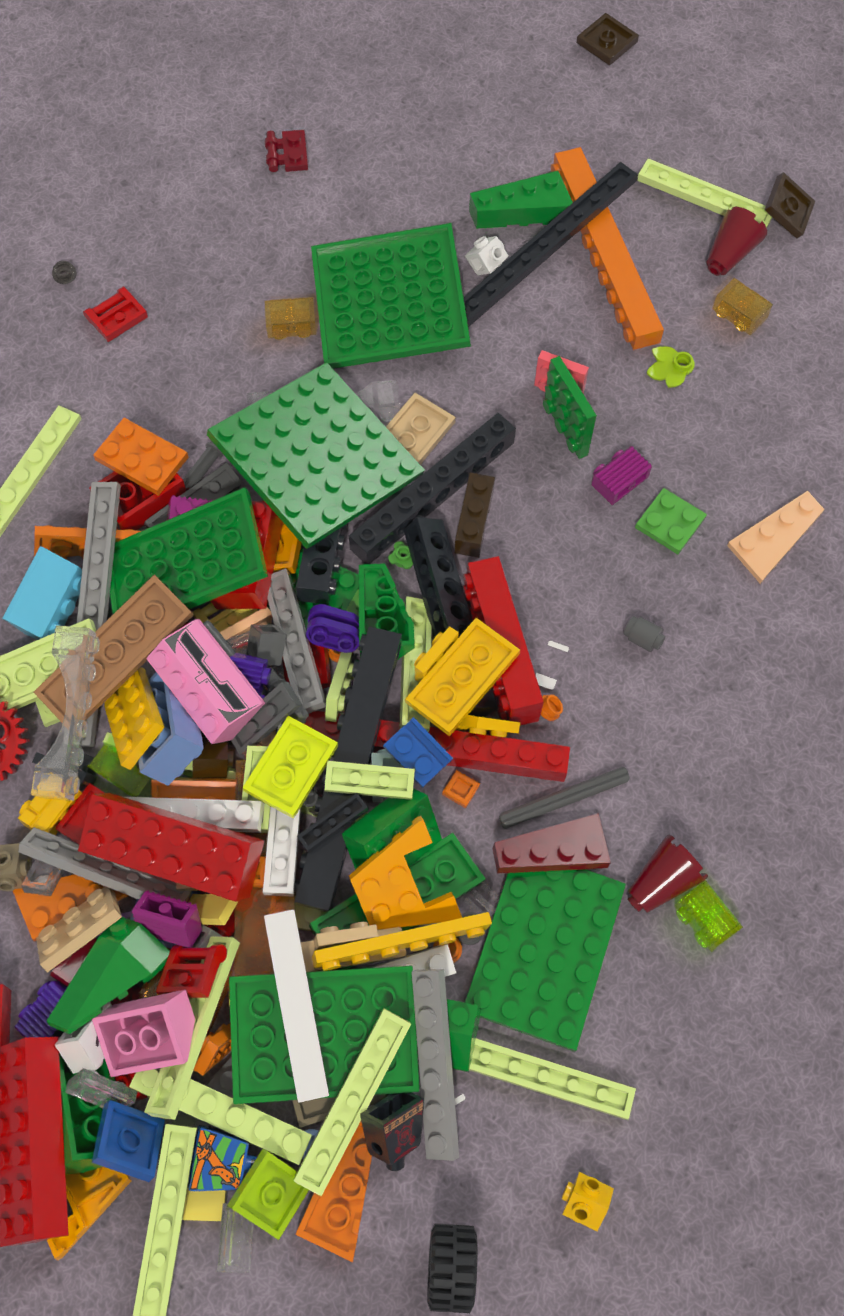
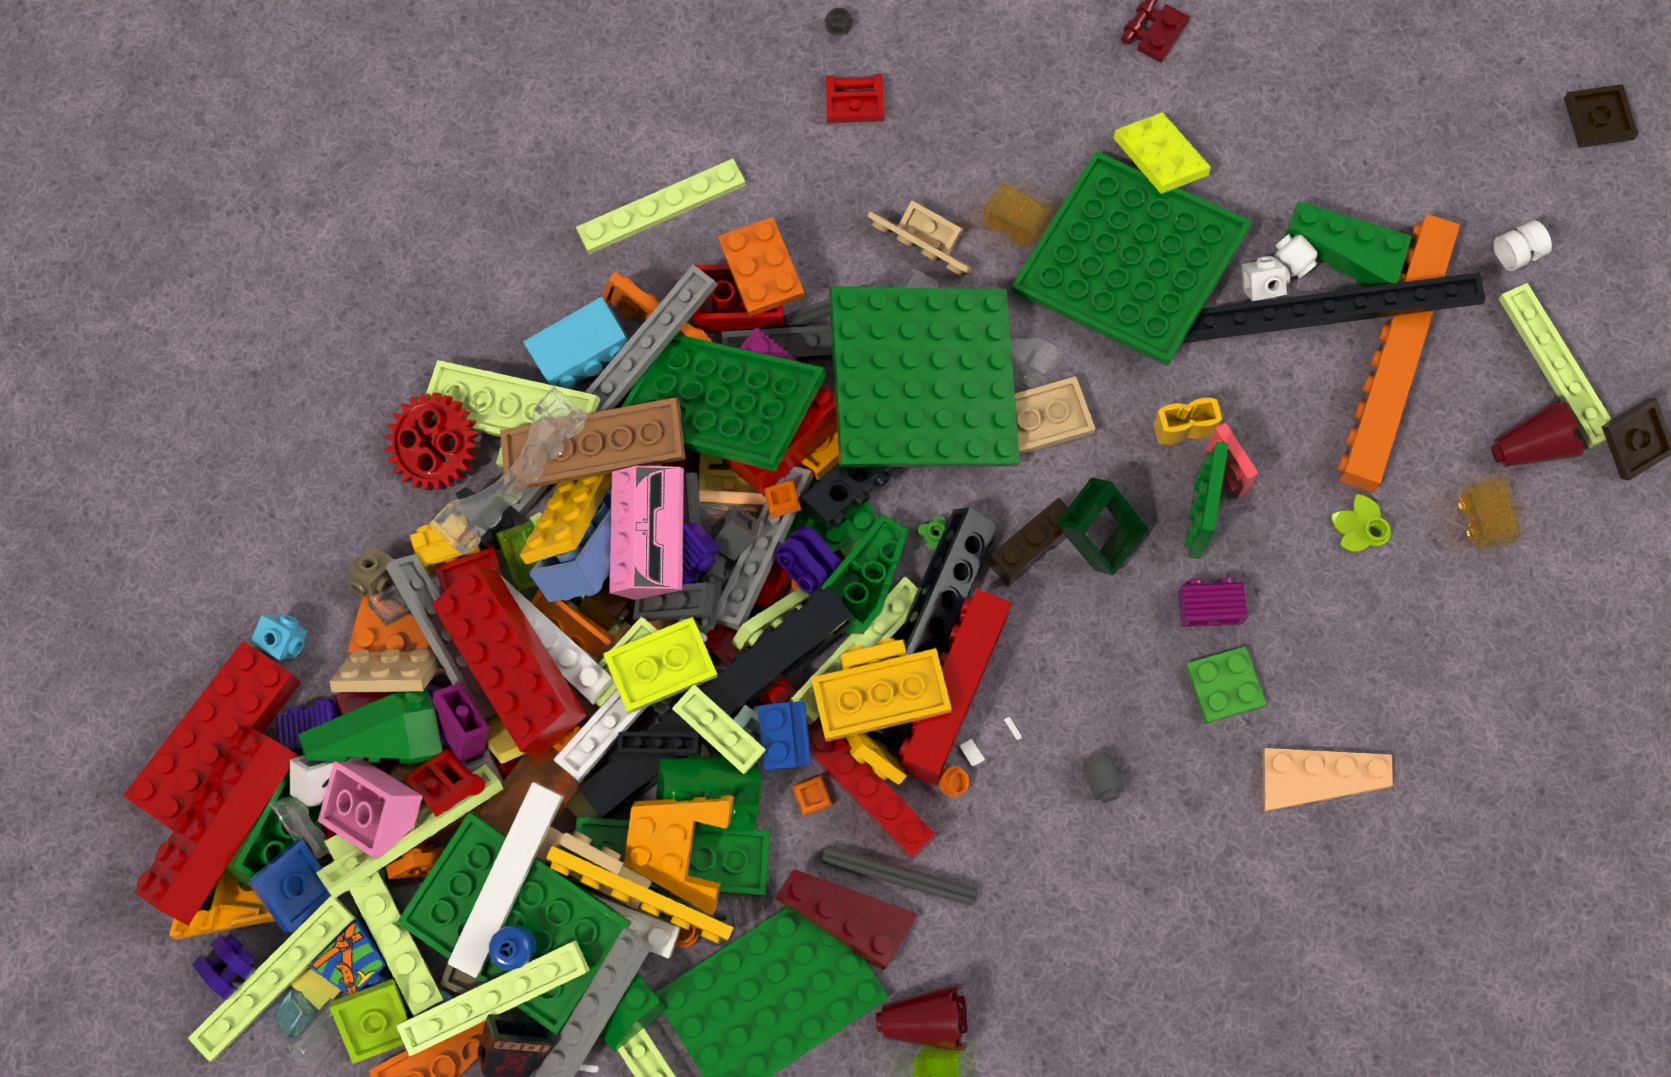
camera: 40 degrees right, 5 degrees up
(109, 1232) = (231, 952): none -> dark purple brick
(202, 1239) = (293, 1013): none -> clear light blue plate
(237, 365) = (928, 231): none -> tan bracket
(282, 599) = (782, 499): none -> orange tile
(341, 1037) = (520, 940): none -> blue head
(356, 220) = (1161, 152): none -> neon yellow plate
(432, 488) = (1010, 486): black brick -> none
(494, 225) = (1296, 254): none -> white head
(498, 455) = (1085, 510): none -> dark green window
(511, 372) = (1183, 421): none -> yellow brick
(626, 138) = (1522, 246): none -> white wheel

